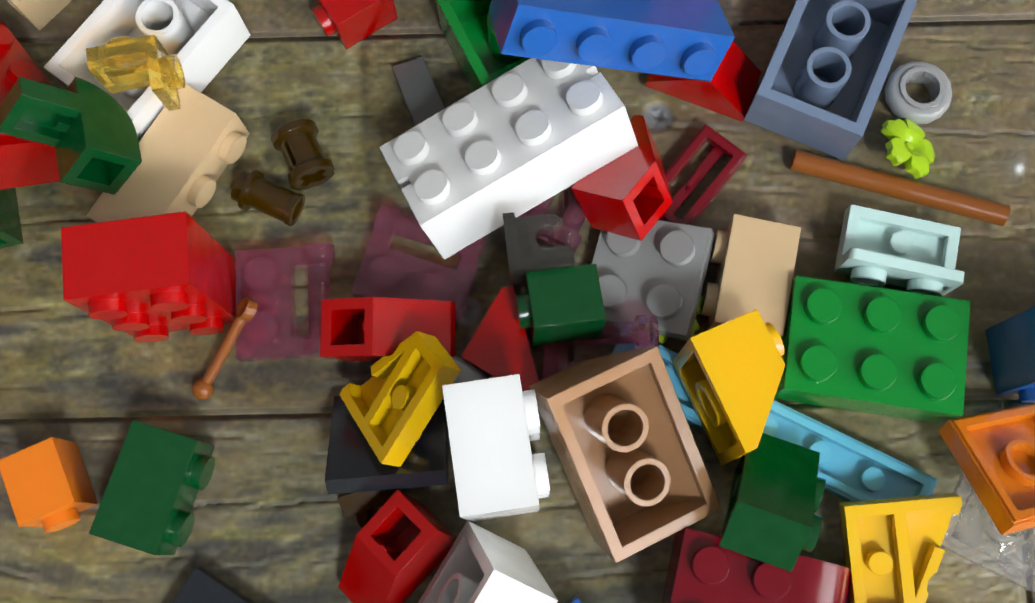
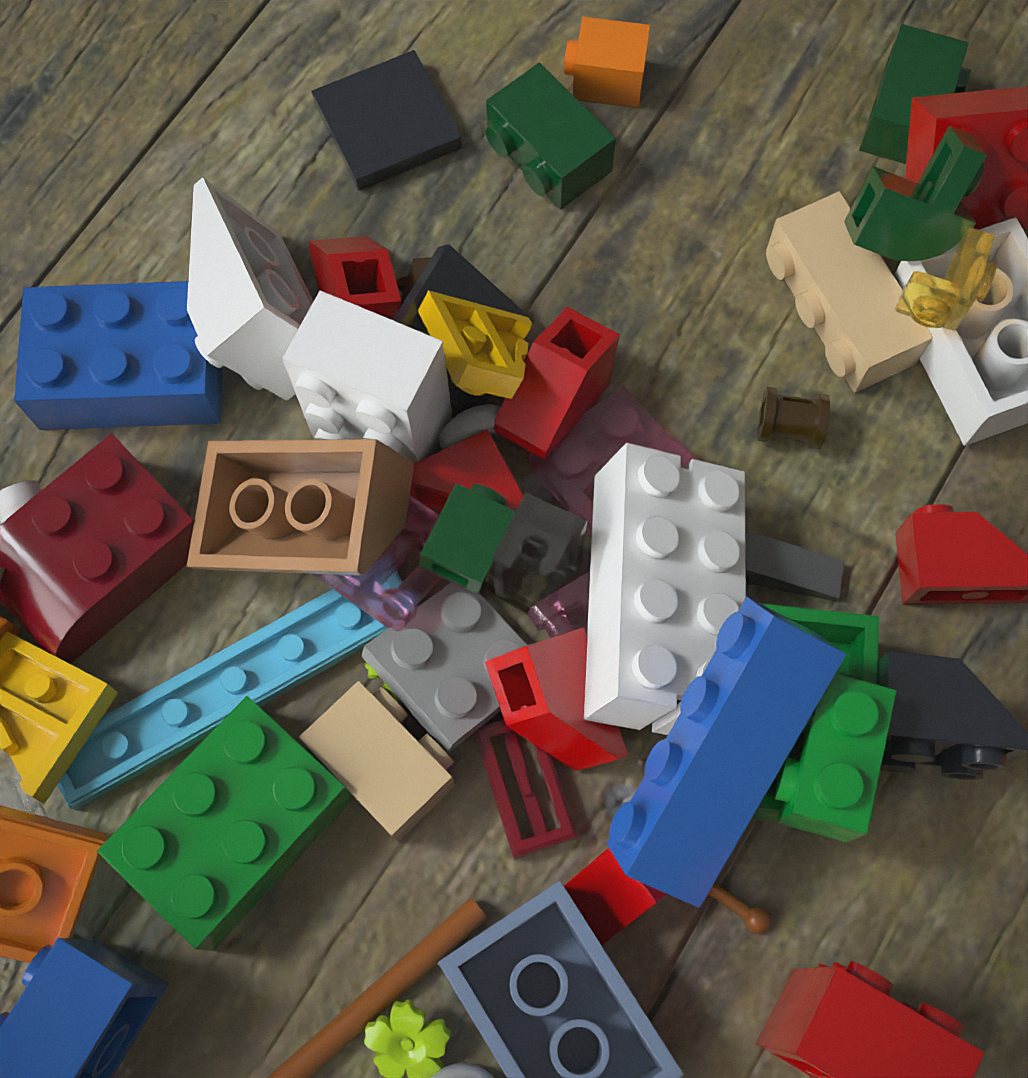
camera: 120 degrees right, 5 degrees down
(150, 276) = (726, 199): red brick -> none
(246, 310) = (617, 223): dark orange hinge -> none
(267, 197) = (768, 365): dark brown pin -> none
(270, 280) = (663, 316): clear pink plate -> none
(733, 381) = (288, 641): yellow slope -> none
(774, 503) = (160, 616): dark green brick -> none
(898, 251) = (301, 936): light aqua bracket -> none

